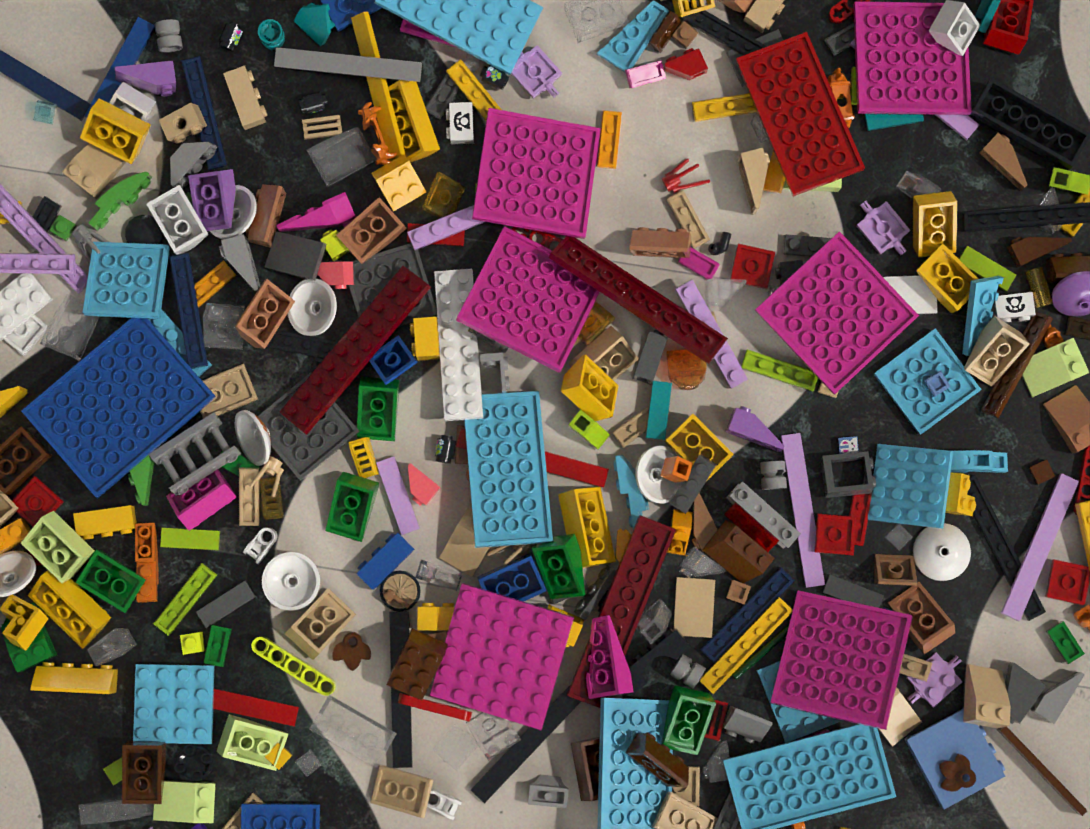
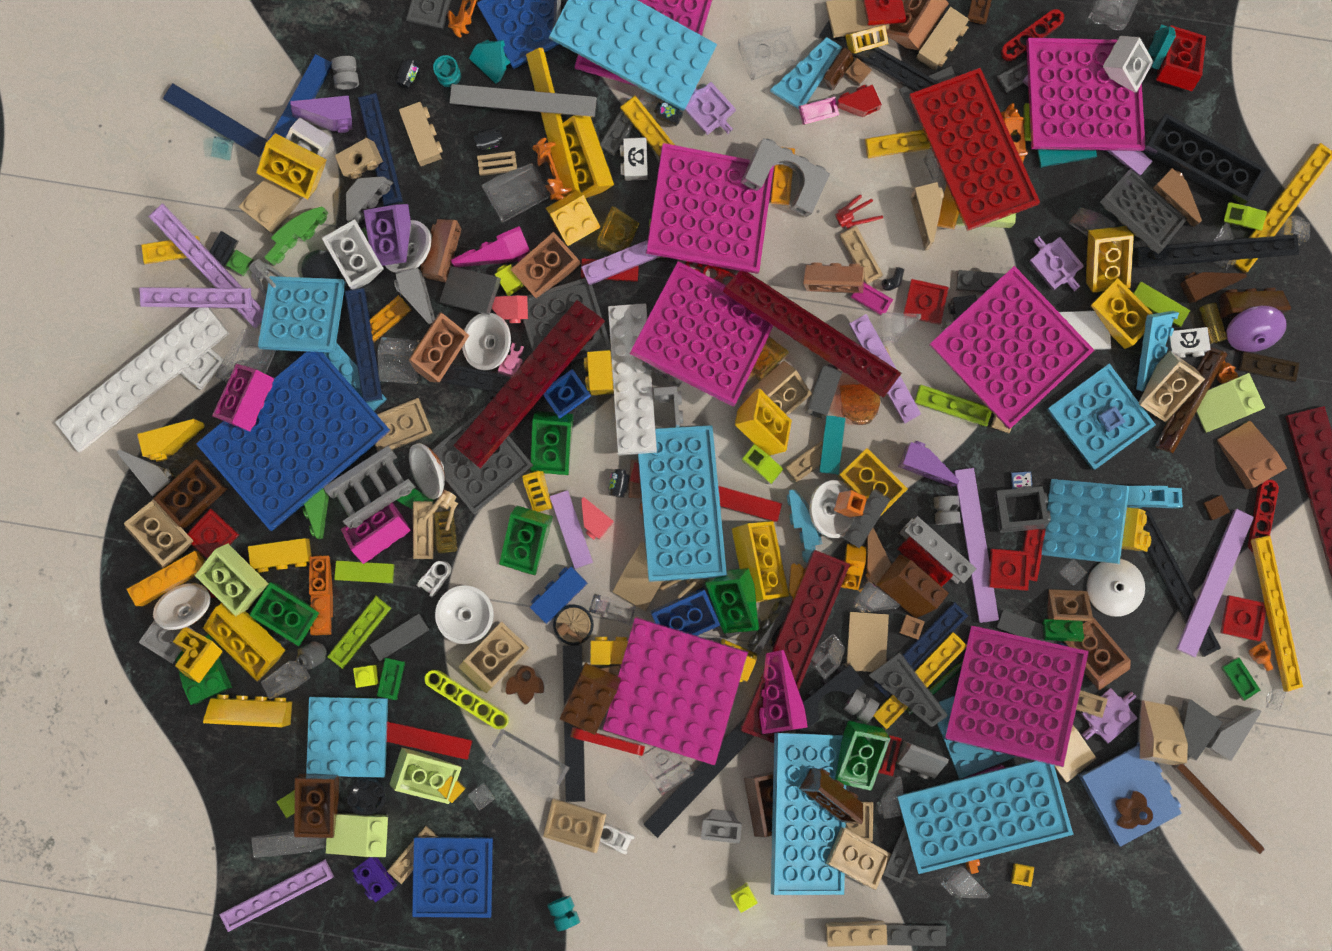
camera: 10 degrees right, 0 degrees up
(68, 364) = (243, 397): none -> dark pink slope
(137, 622) = (311, 654): none -> dark grey head
(337, 328) = (511, 362): none -> bright pink plate
(637, 141) = (811, 177): none -> light grey arch
(731, 649) = (905, 684): none -> dark grey wing
(888, 594) = (1063, 630): none -> green plate
(969, 176) = (1143, 211): none -> dark grey plate

